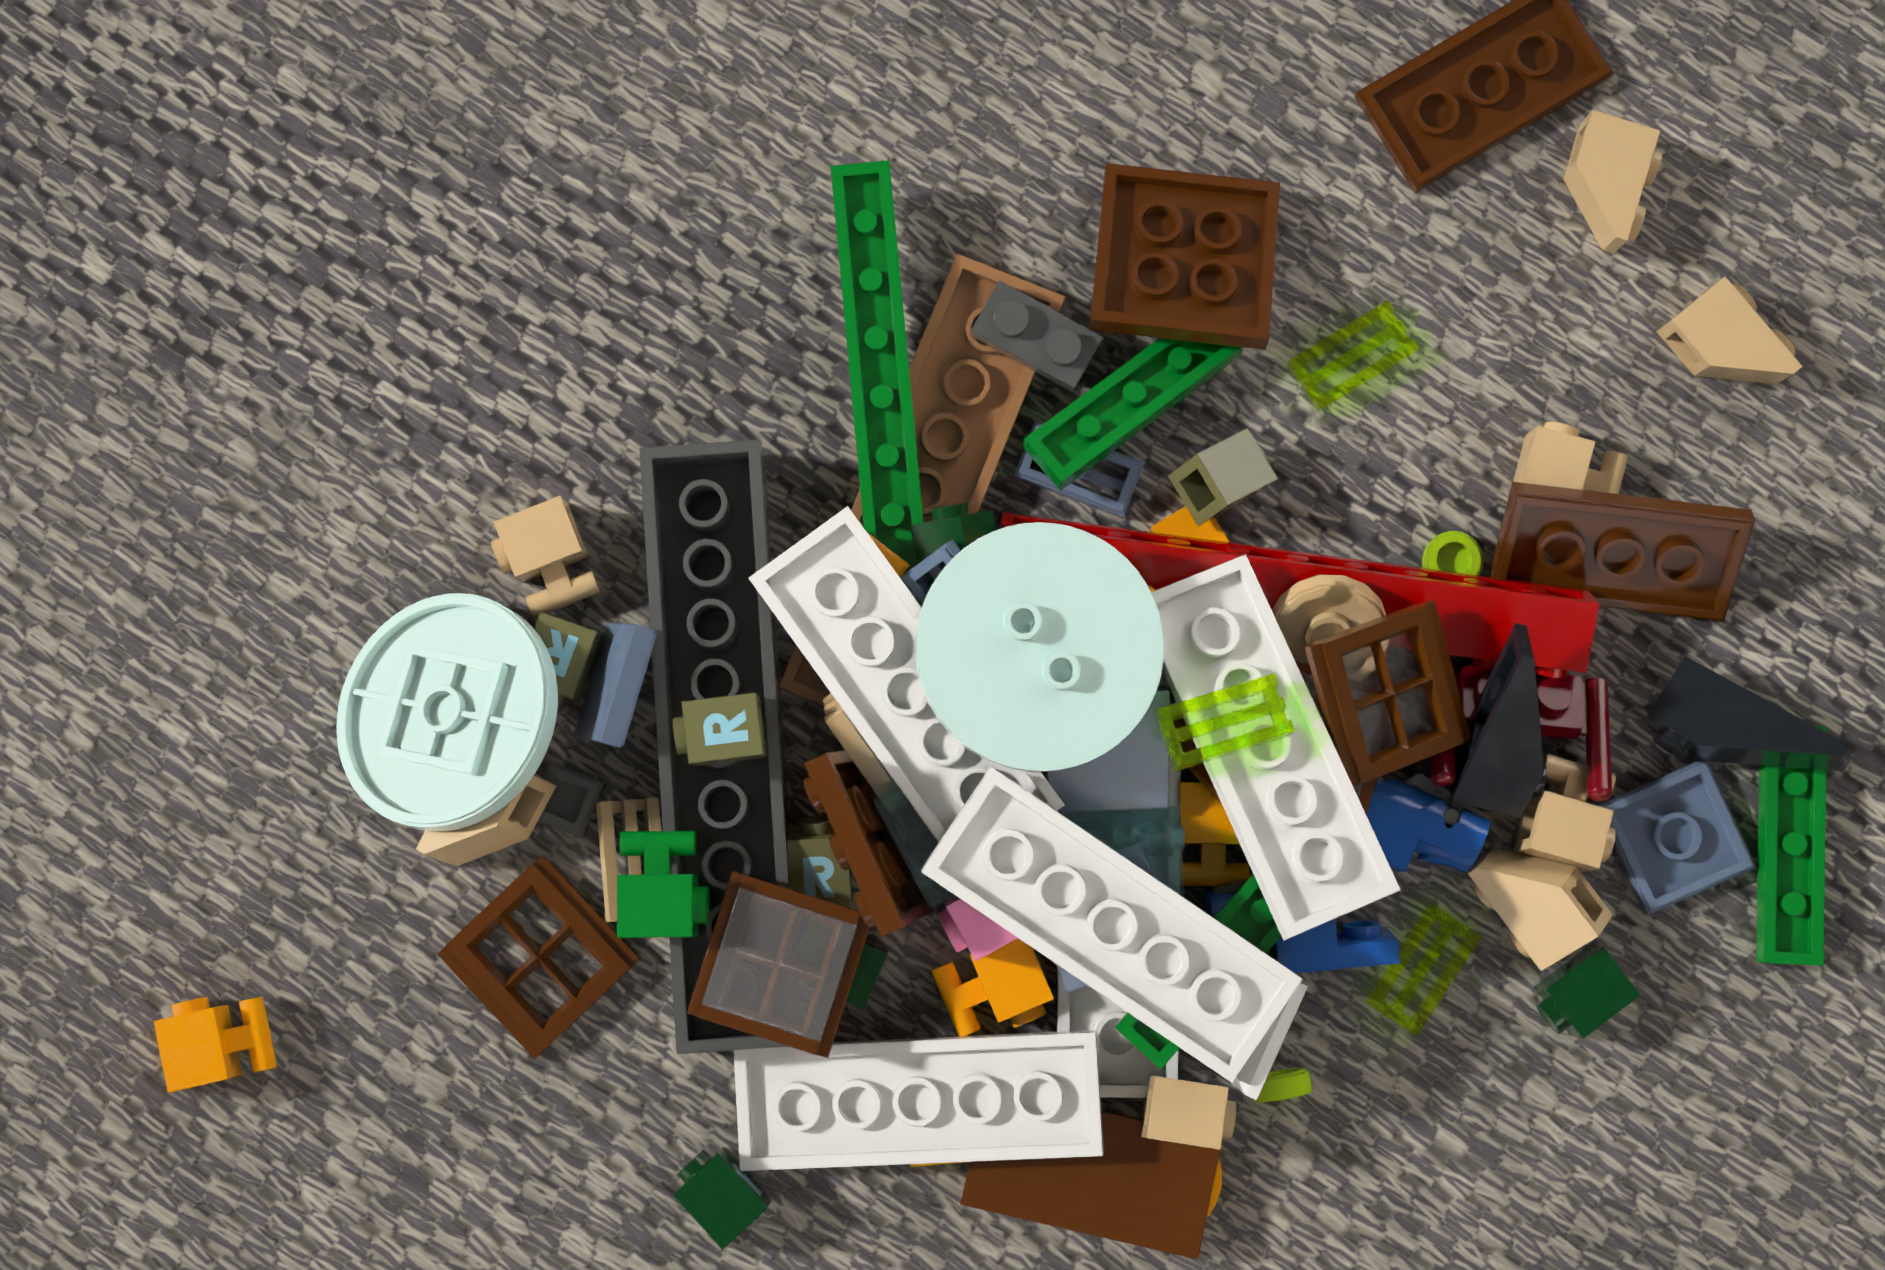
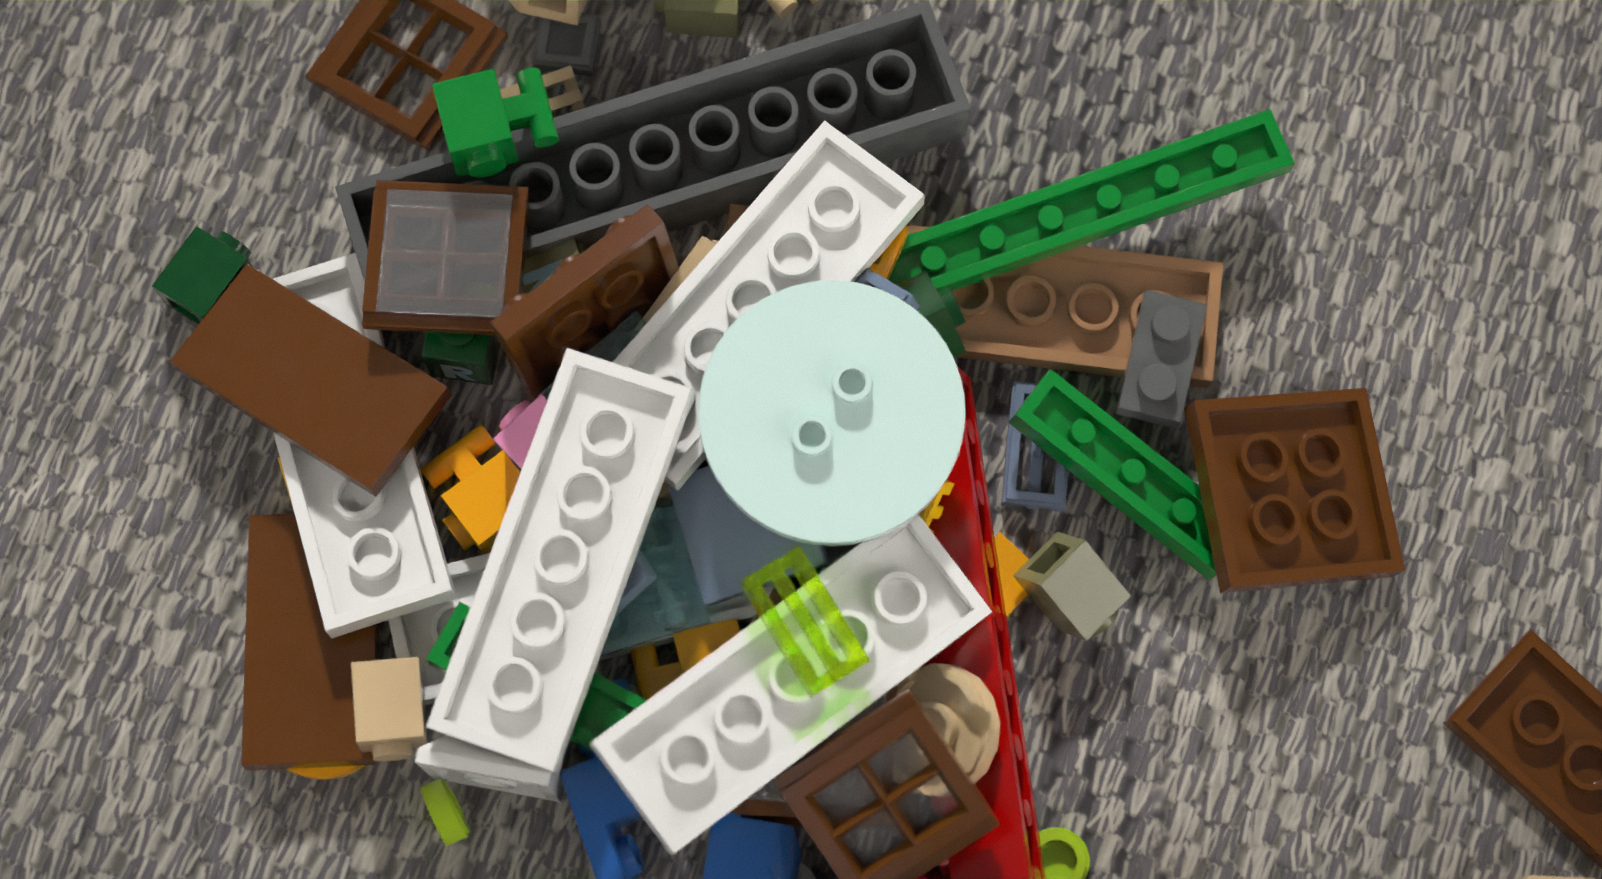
camera: 75 degrees right, 10 degrees down
(615, 684) = (687, 43): sand blue tile -> none
(721, 729) = (666, 138): olive brick -> none
(854, 1119) = (311, 379): none -> reddish brown tile
(1394, 330) = (1263, 681): clear neon green tile -> none

